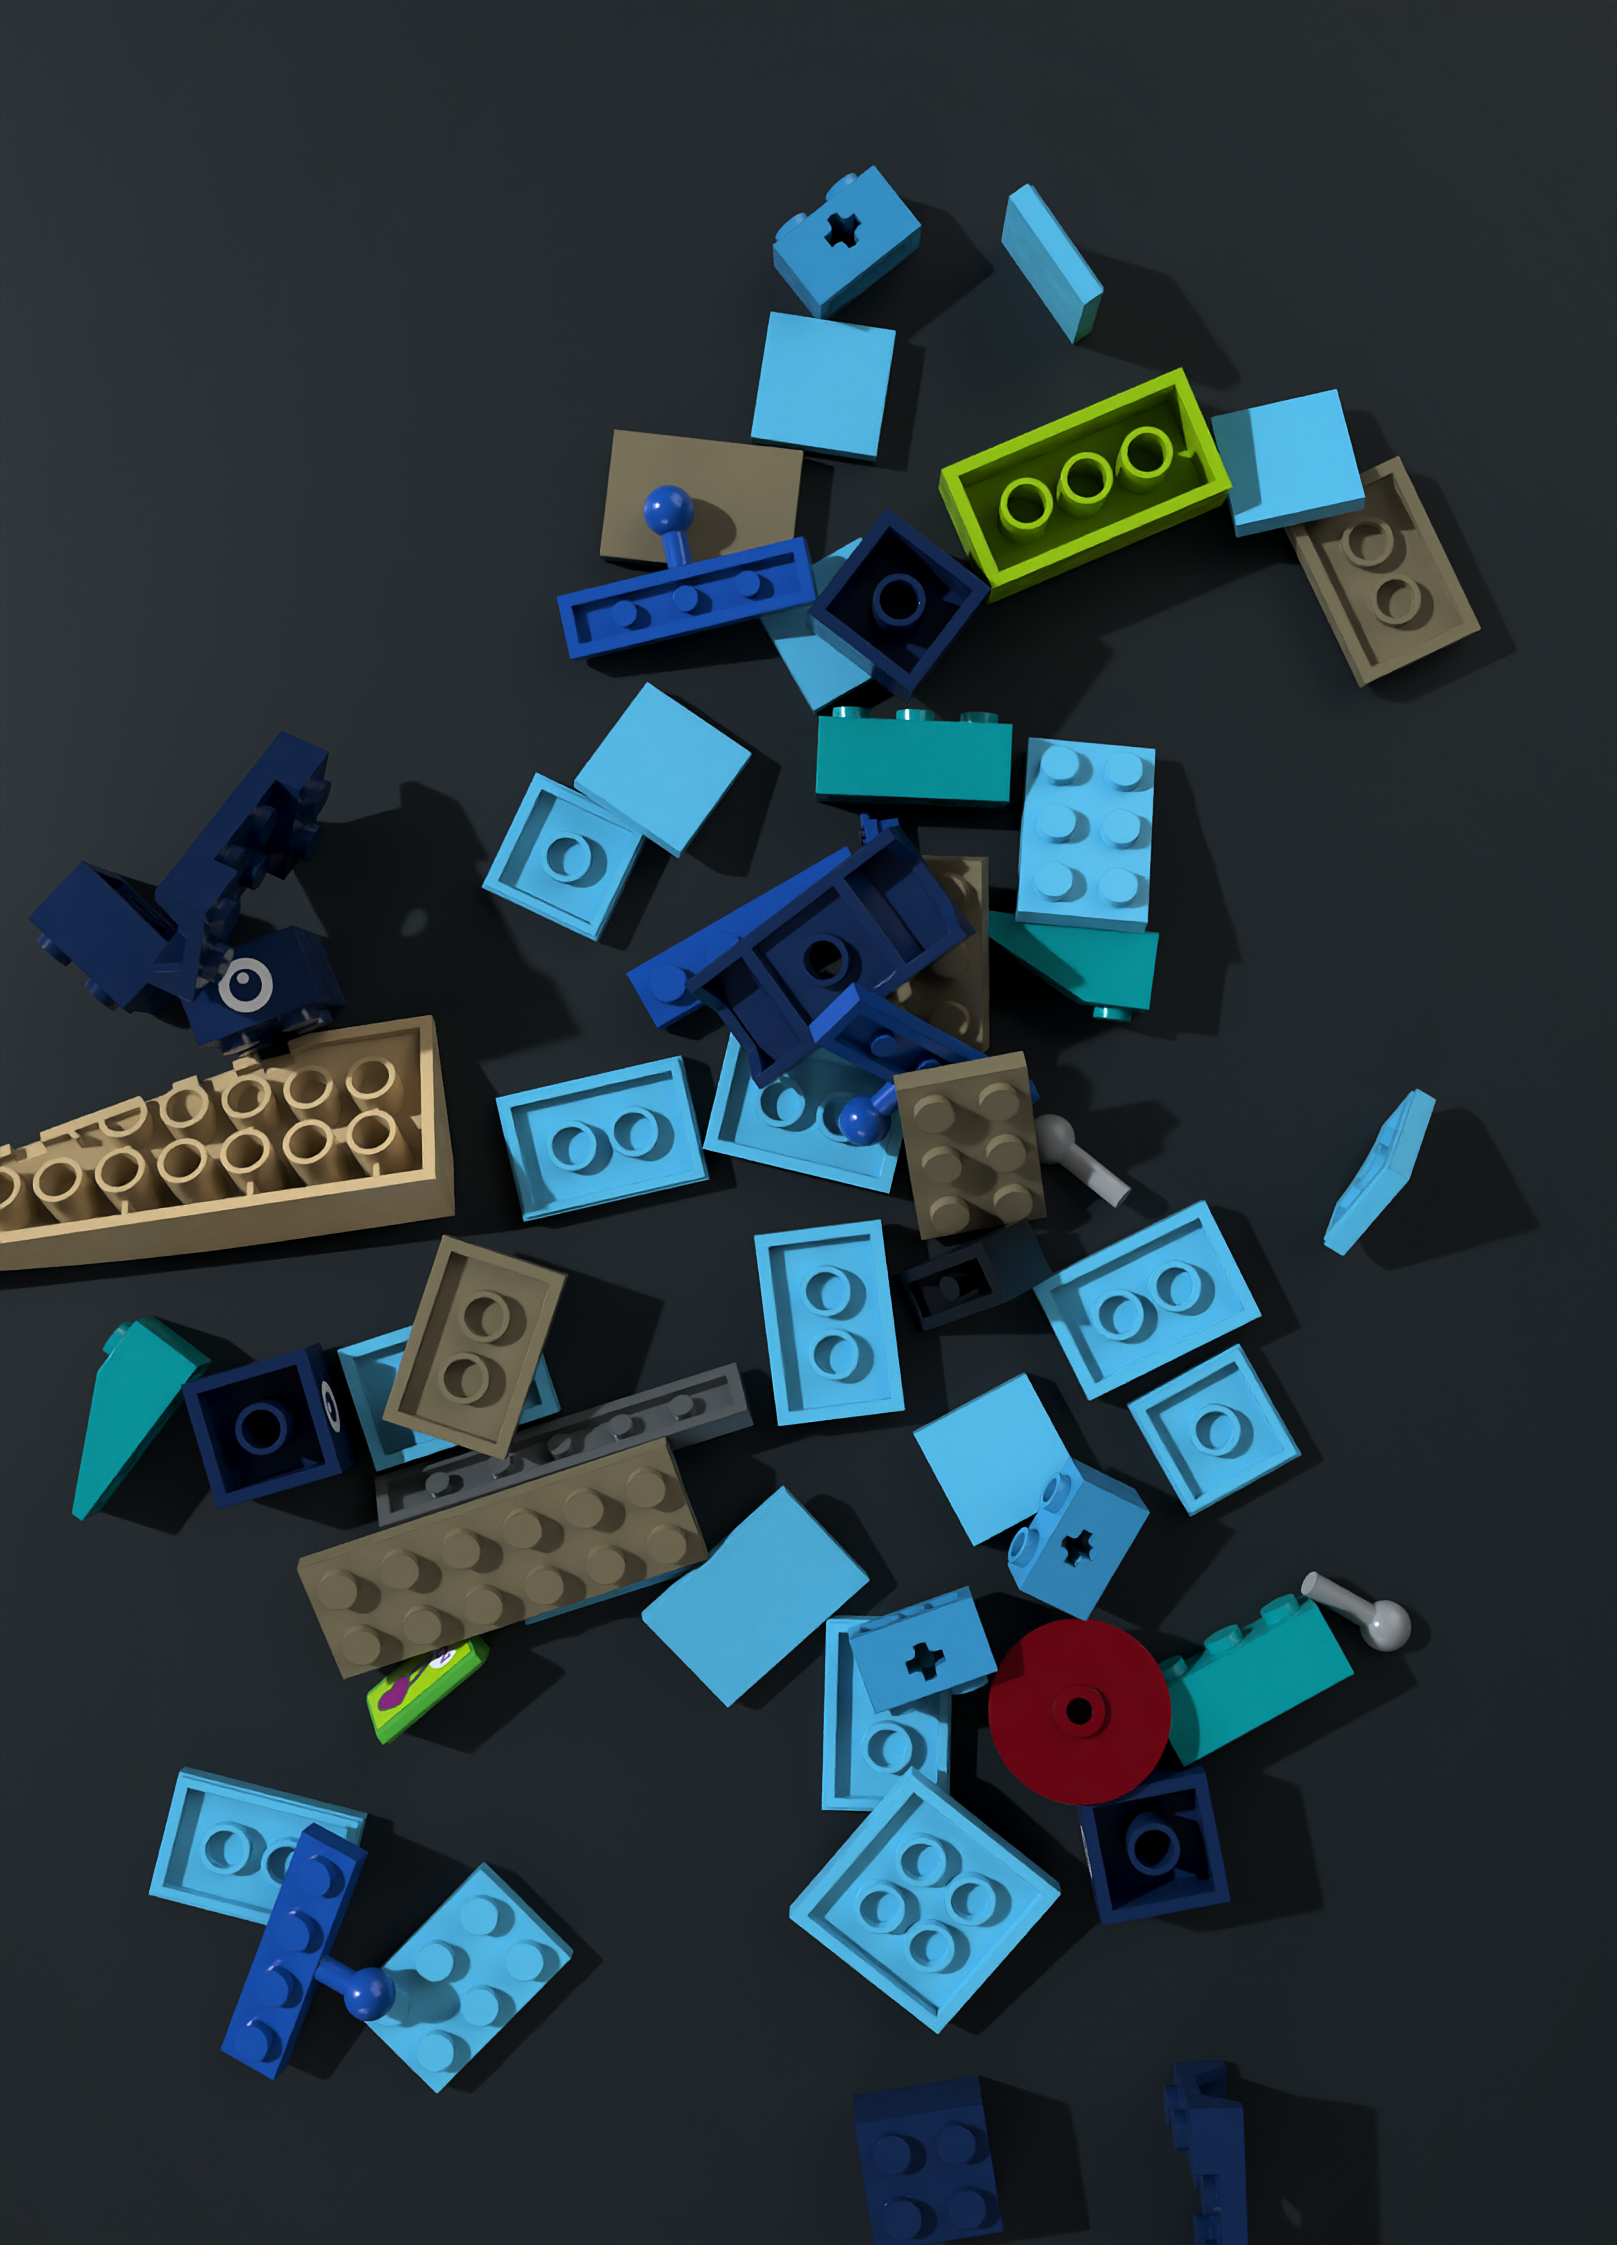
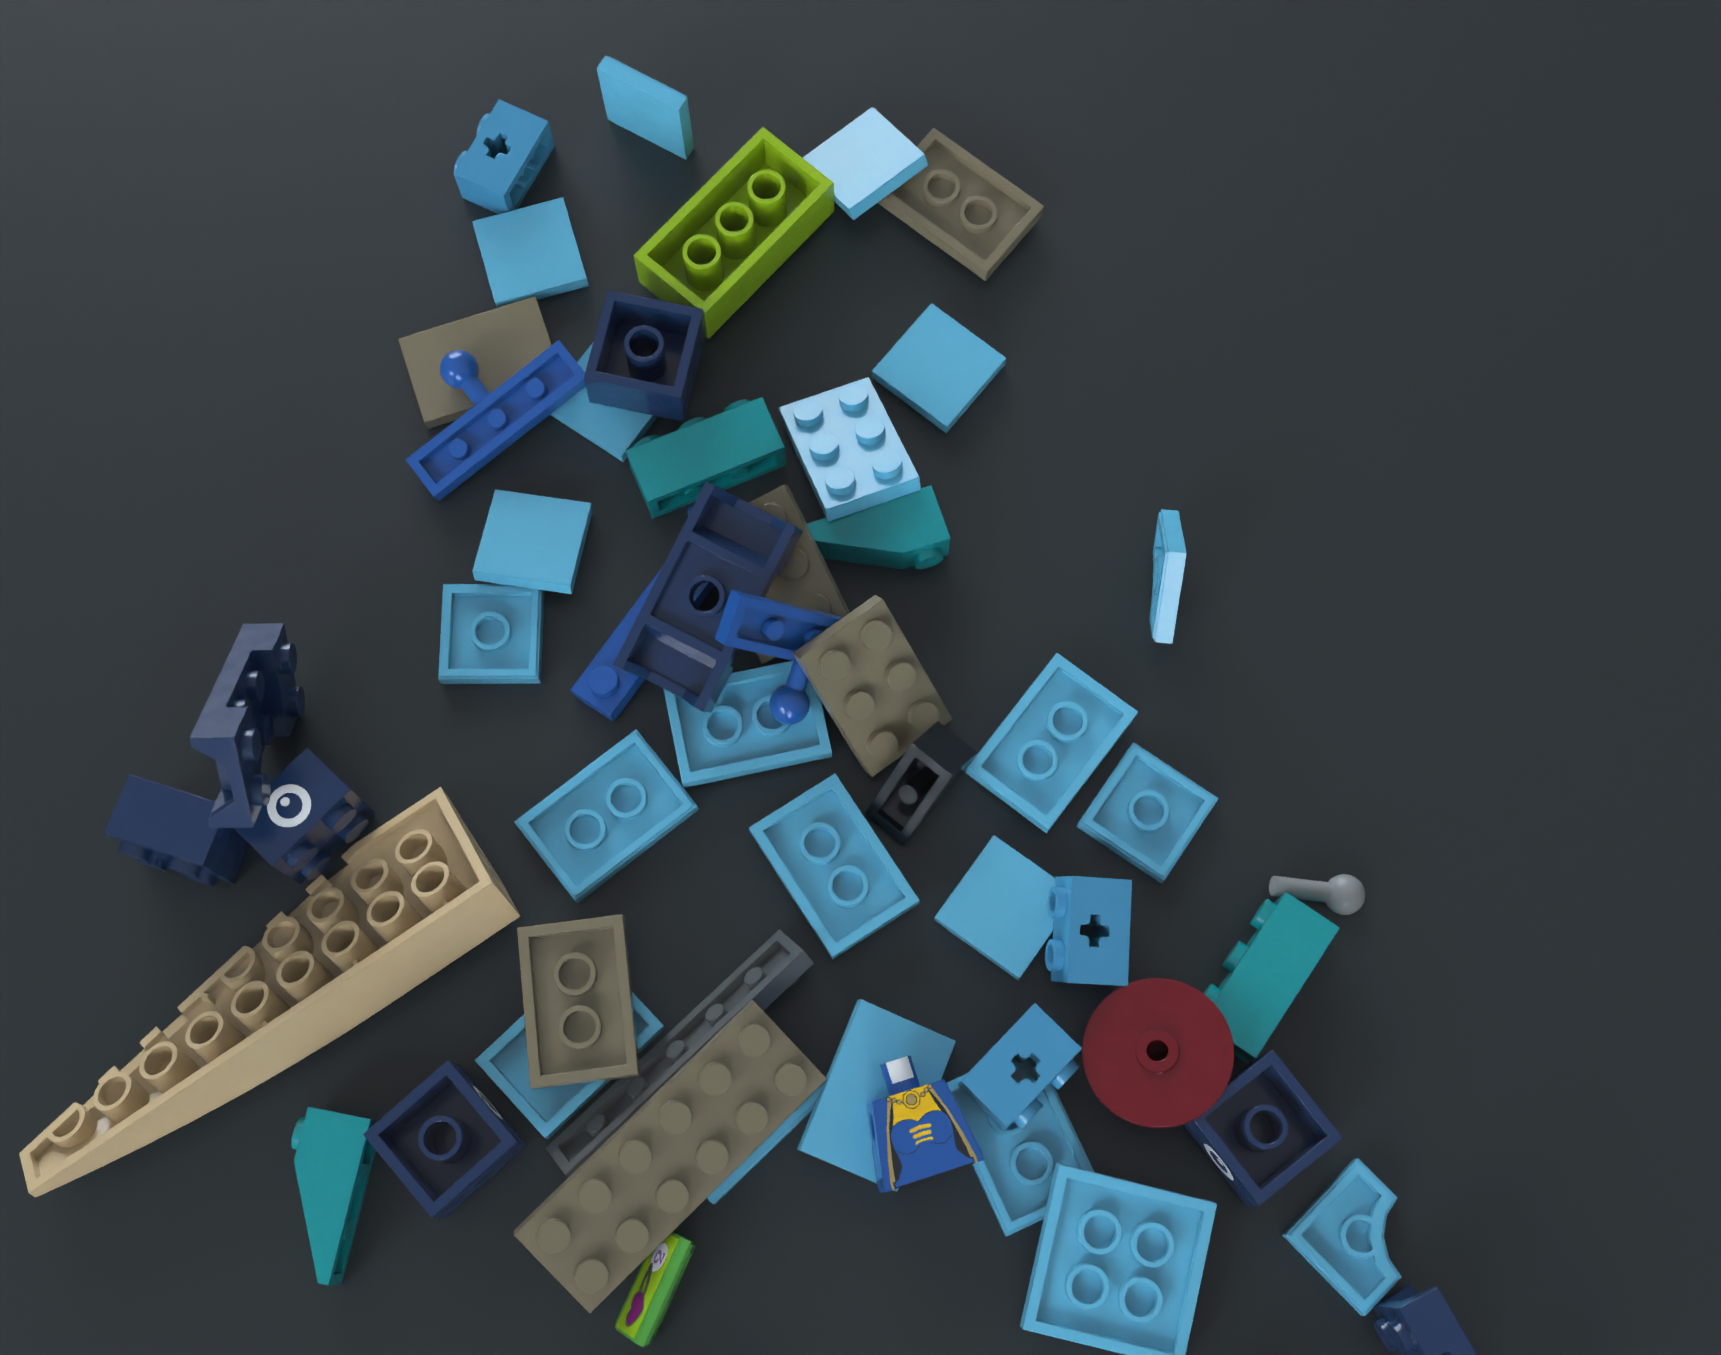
camera: 20 degrees left, 15 degrees down
(776, 1665) = (917, 1129): none -> torso
(1058, 1145) = (940, 669): light grey bar -> none
(1185, 1982) = (1345, 1236): none -> medium azure tile
(1246, 774) = (938, 367): none -> medium azure tile

